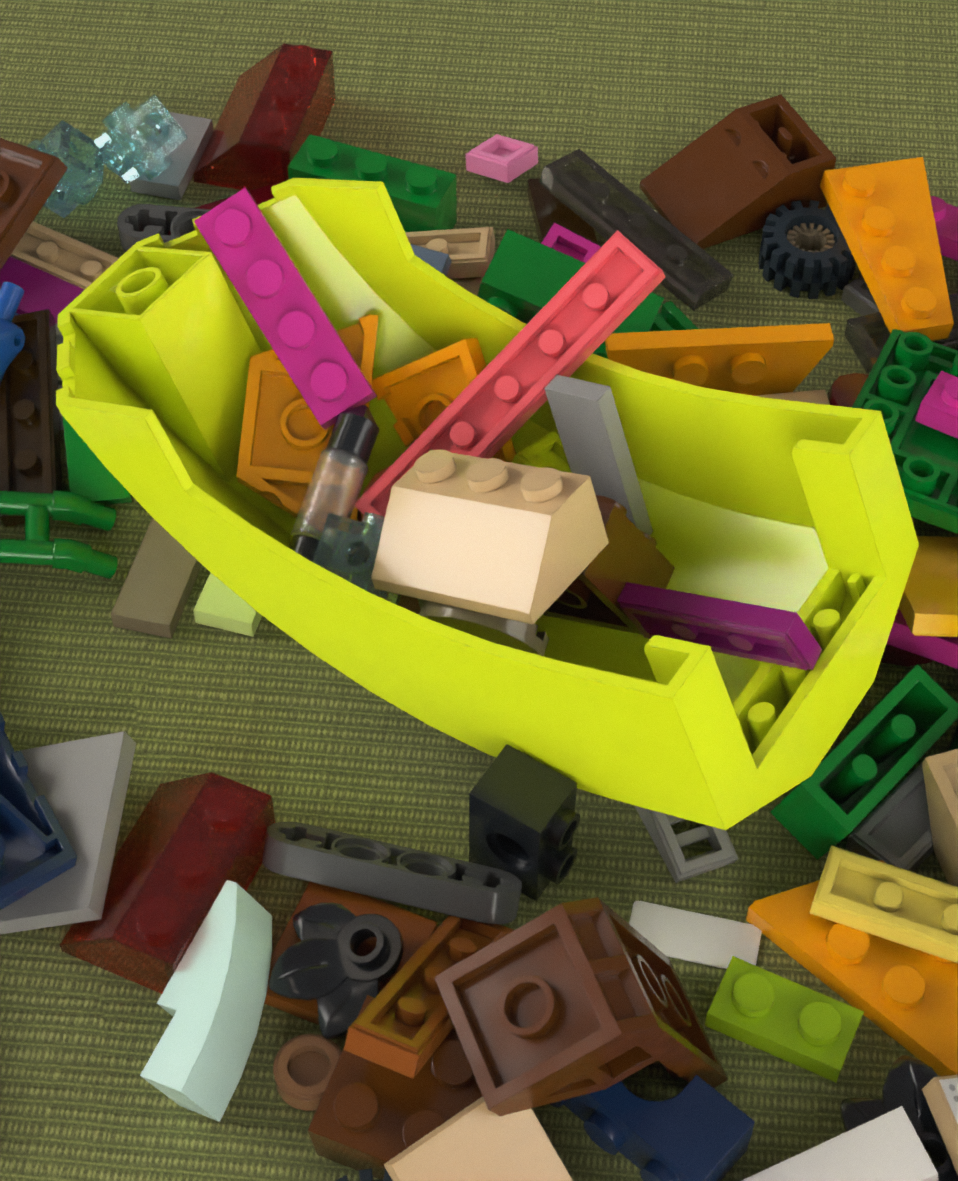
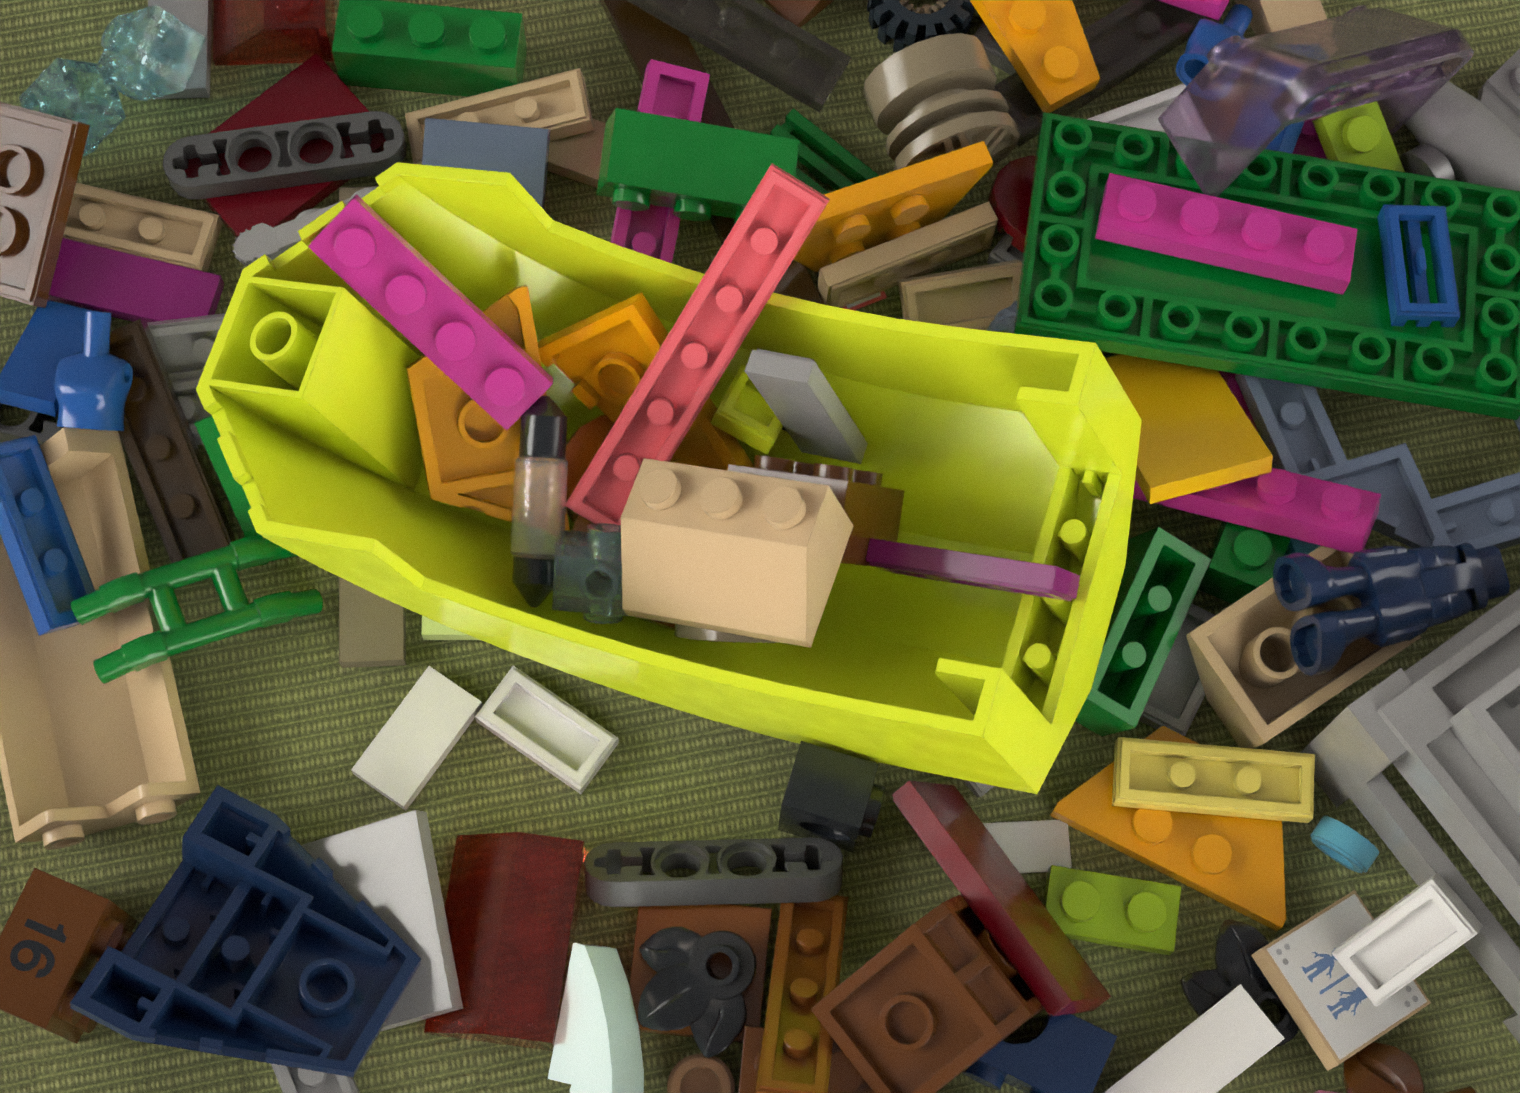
camera: 20 degrees left, 20 degrees up
(158, 692) = (417, 738): none -> white tile
(279, 719) = (547, 729): none -> white tile
(669, 956) = (1001, 898): none -> tile
(805, 286) = (939, 100): none -> dark tan wheel

